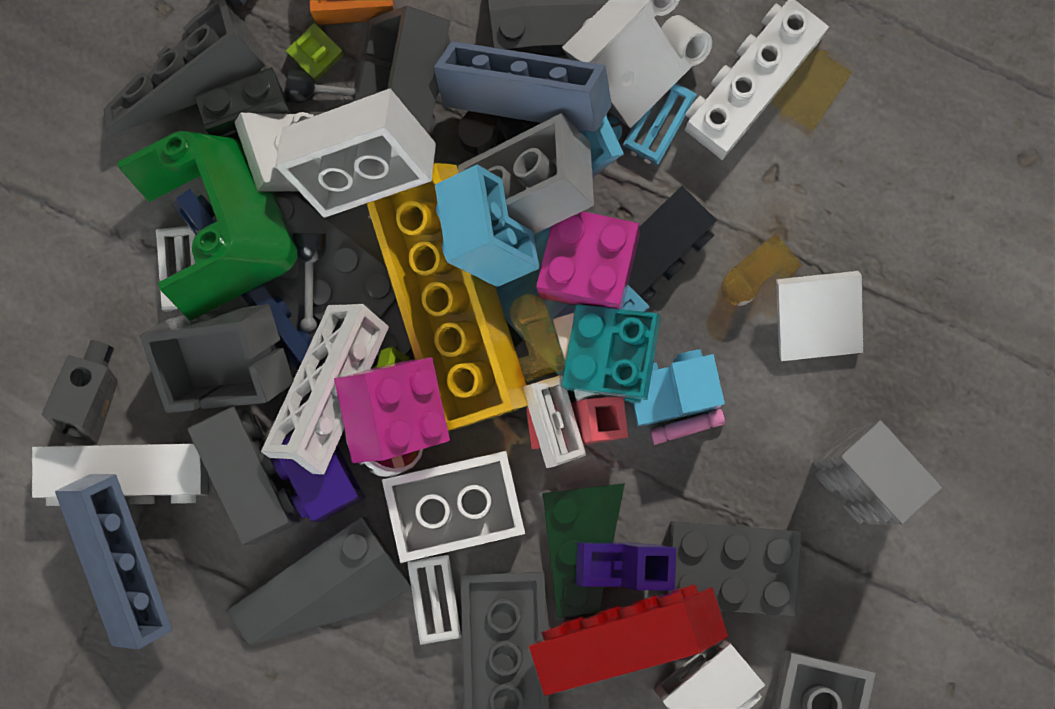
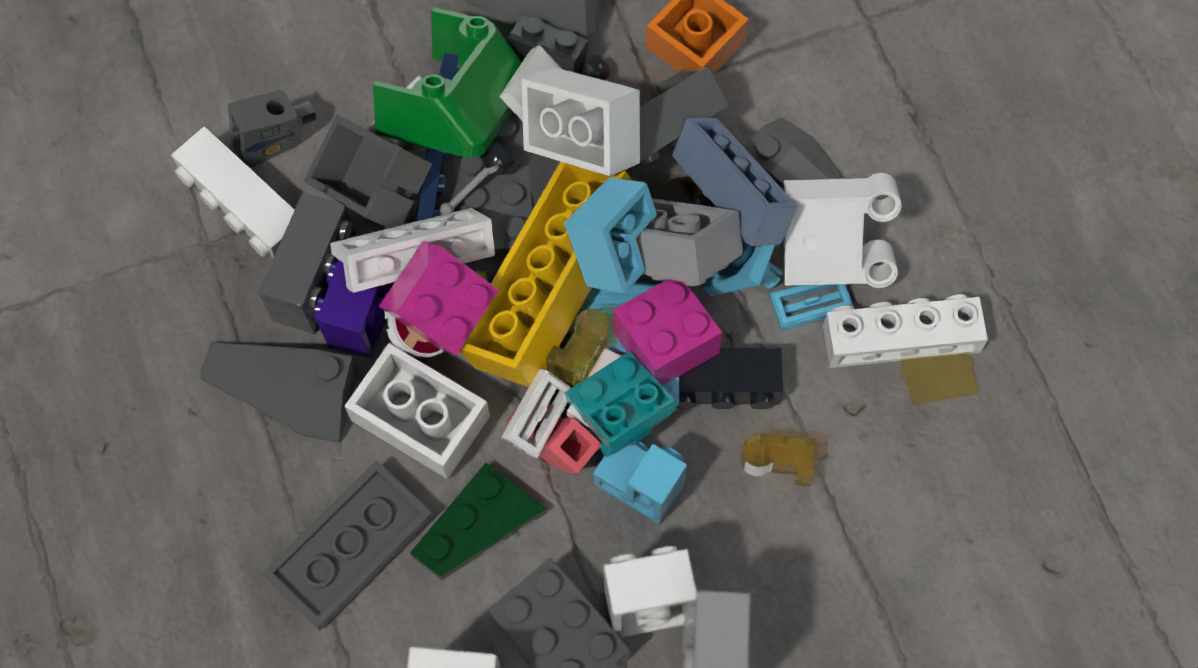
camera: 45 degrees right, 15 degrees down
(113, 560) = (175, 235): sand blue brick -> none
(314, 52) = (627, 62): lime tile -> none
(429, 564) = (333, 454): white tile -> none
(626, 565) = (487, 554): dark purple brick -> none
(628, 638) = (437, 597): red brick -> none
(687, 426) = (627, 515): bright pink wheel -> none
(779, 477) = (648, 591): none -> white brick
(819, 315) = (792, 524): white tile -> none

